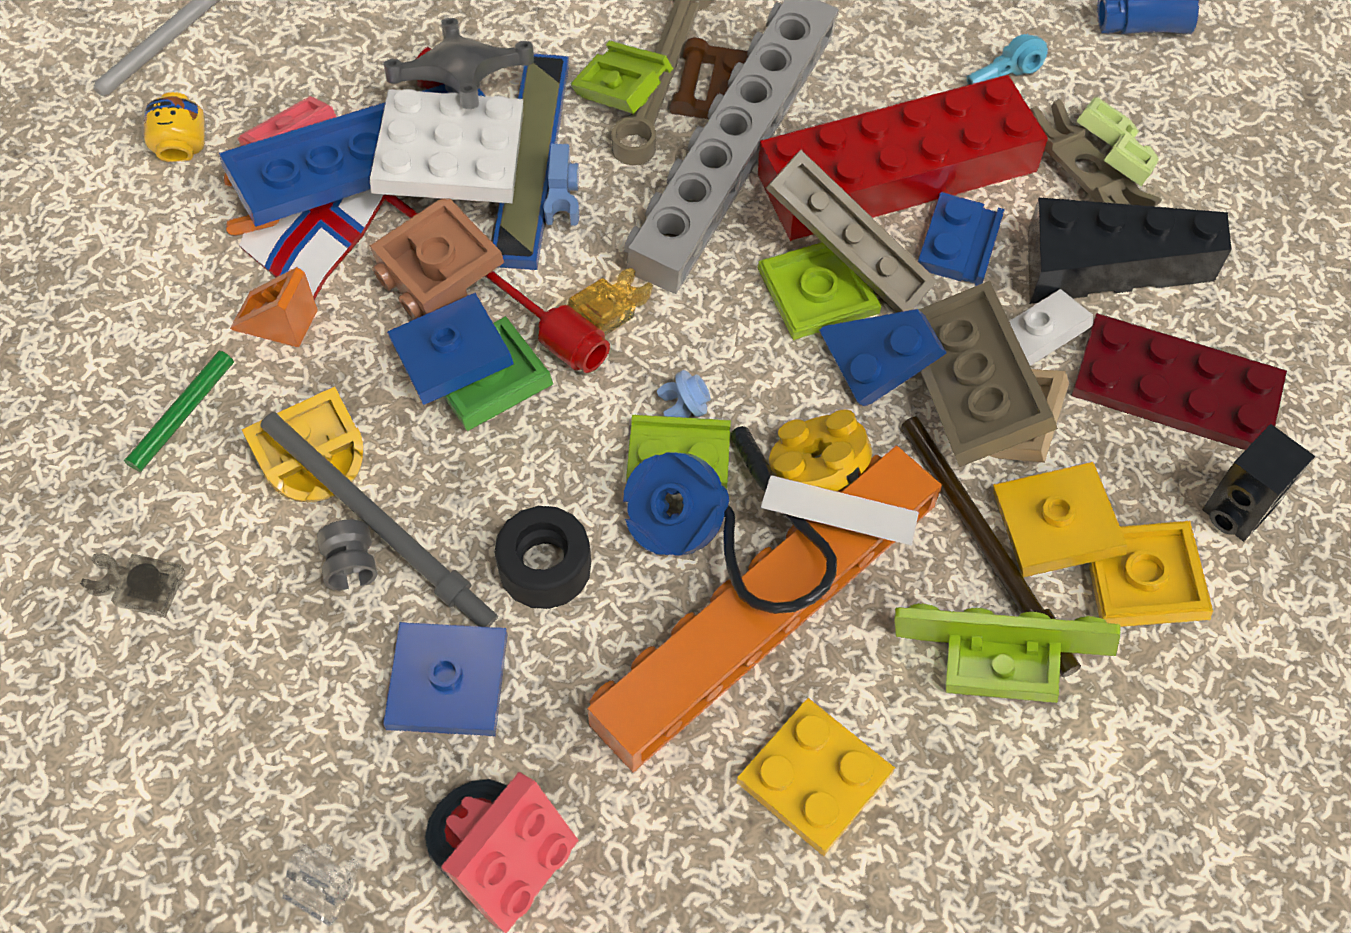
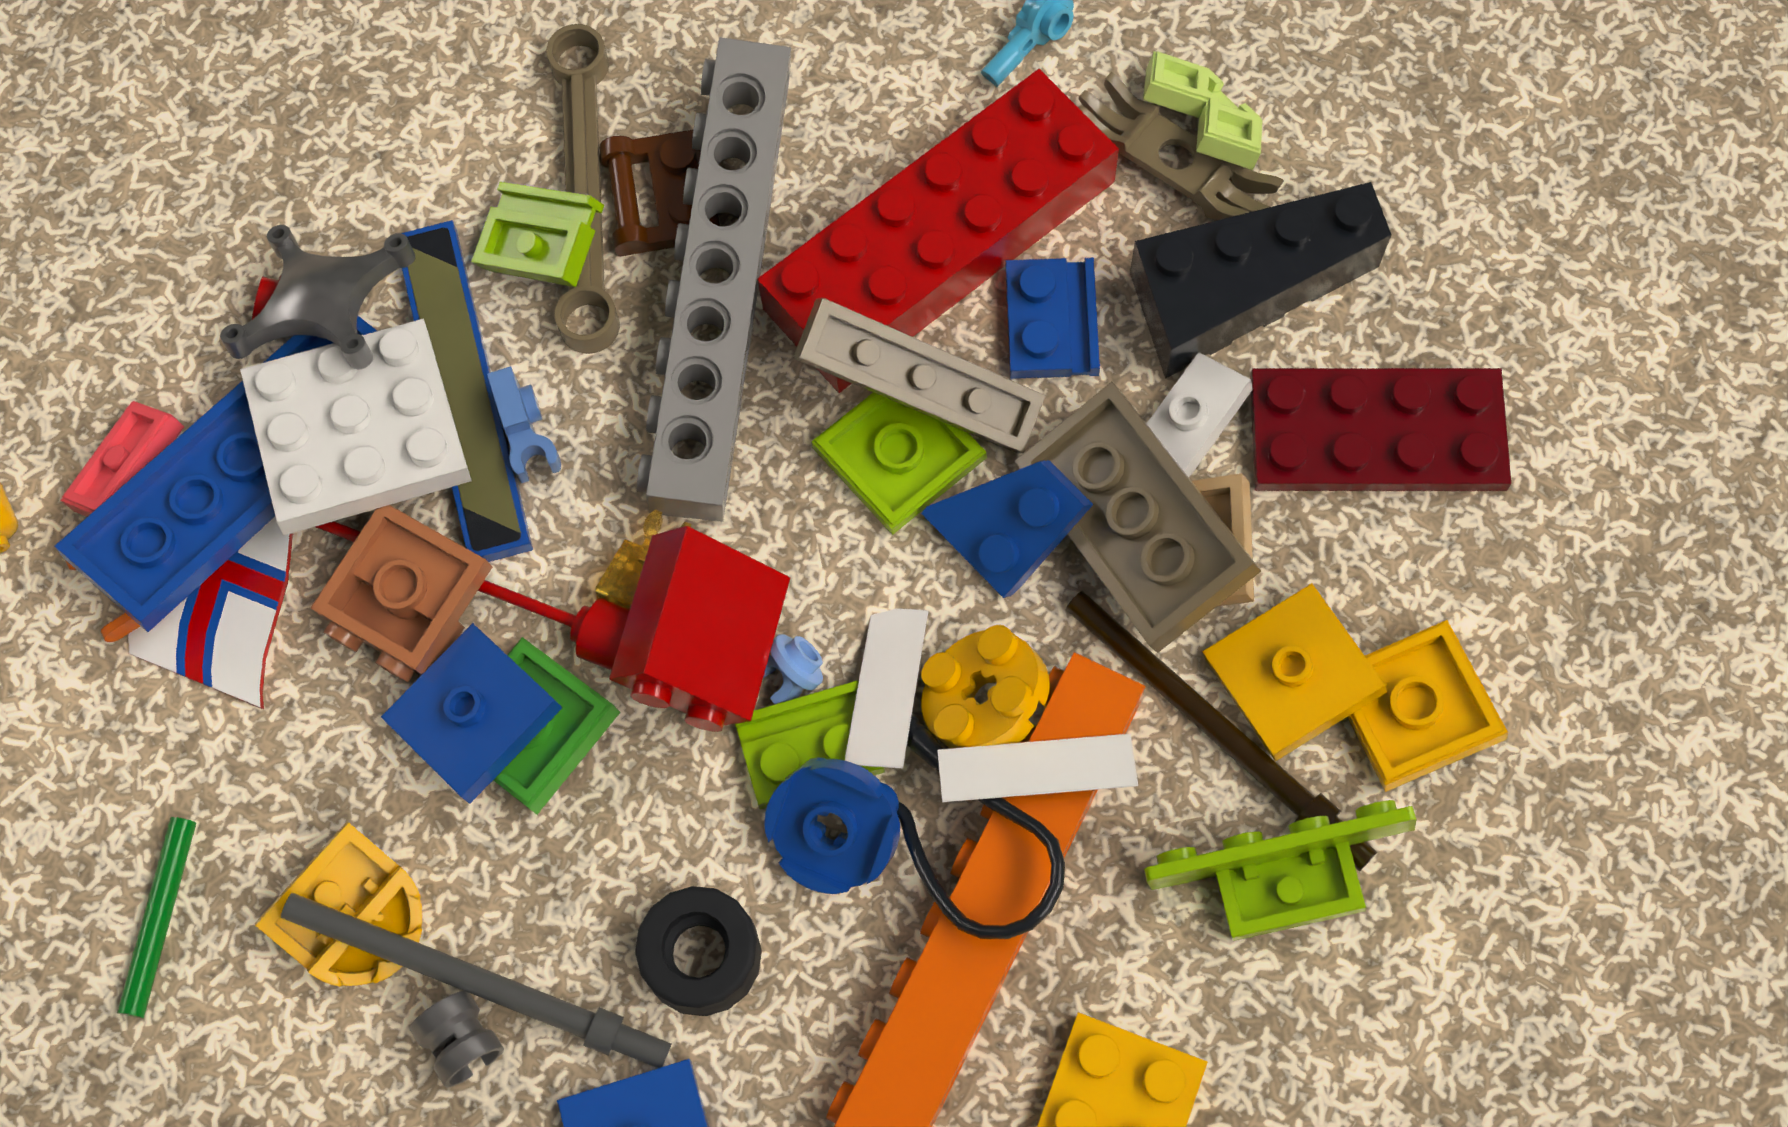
camera: 15 degrees left, 10 degrees up
(278, 309) = (223, 735): orange slope -> none
(631, 342) = (700, 629): none -> red brick
(750, 431) = (886, 688): none -> white sticker
(1257, 483) = (1512, 550): black brick -> none

